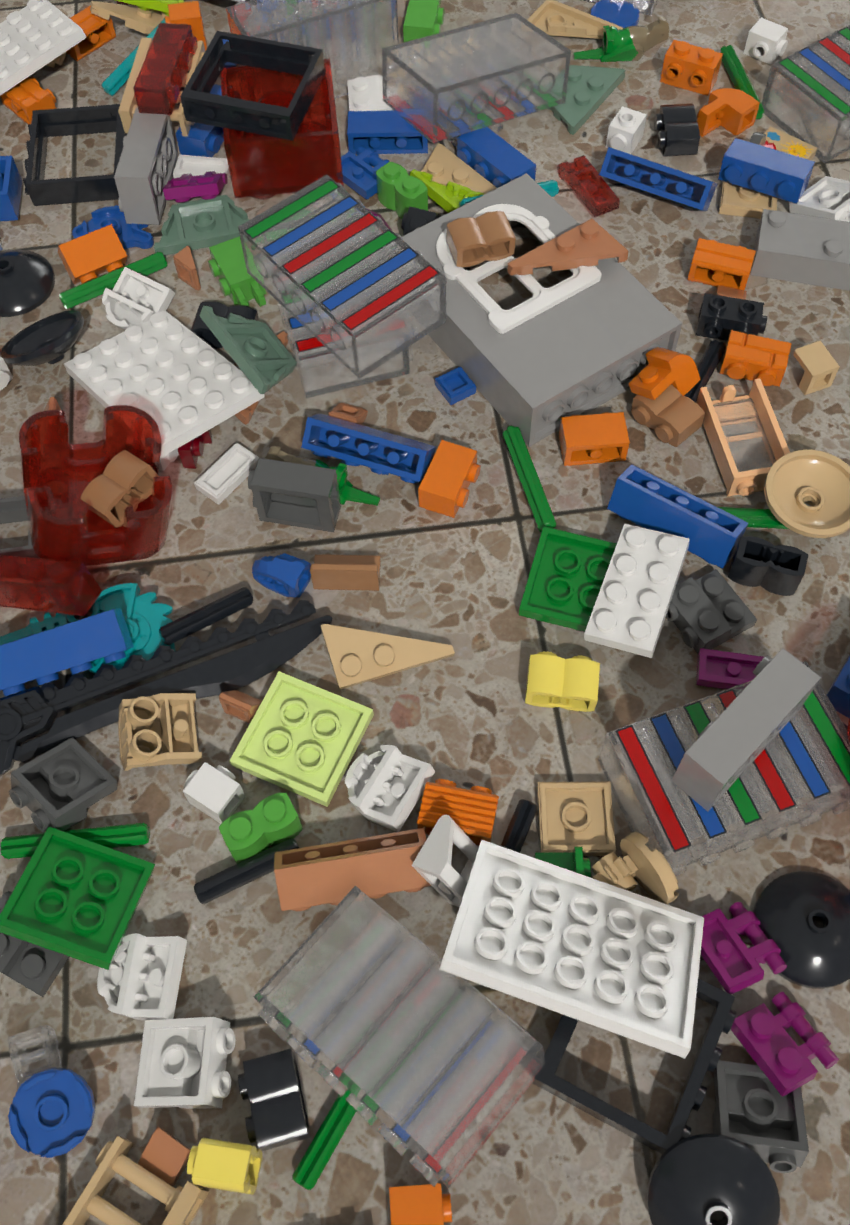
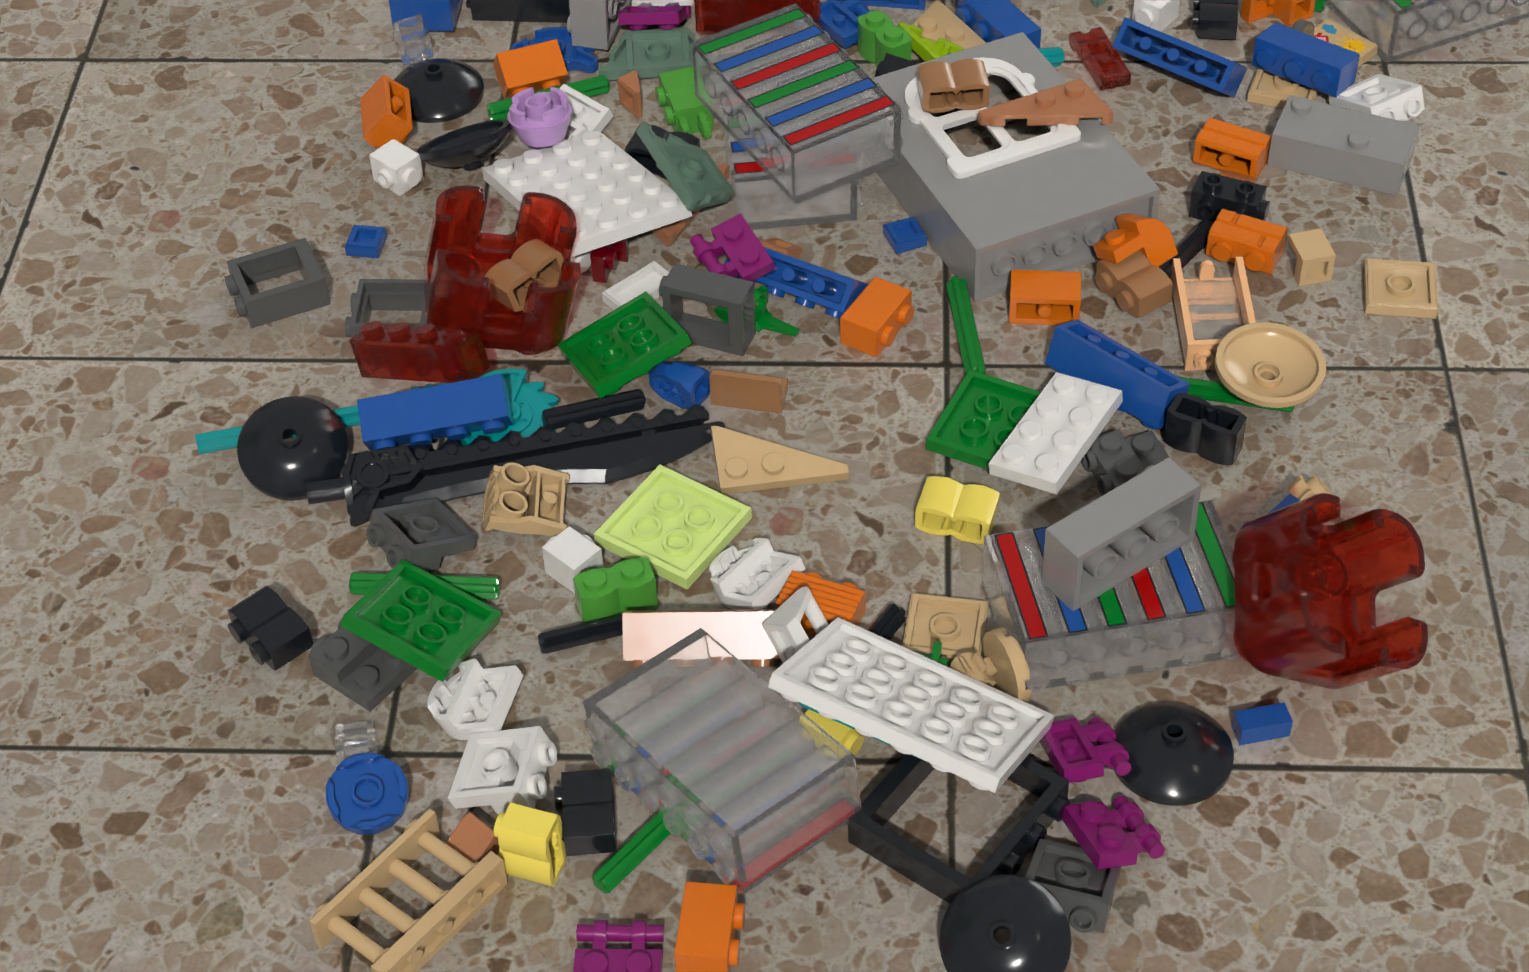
camera: 10 degrees right, 15 degrees down
(108, 307) = (540, 117): none -> lavender cone
(224, 544) = (624, 344): none -> green plate
(239, 705) = (610, 491): nougat slope -> none
(316, 429) = (739, 245): none -> magenta plate

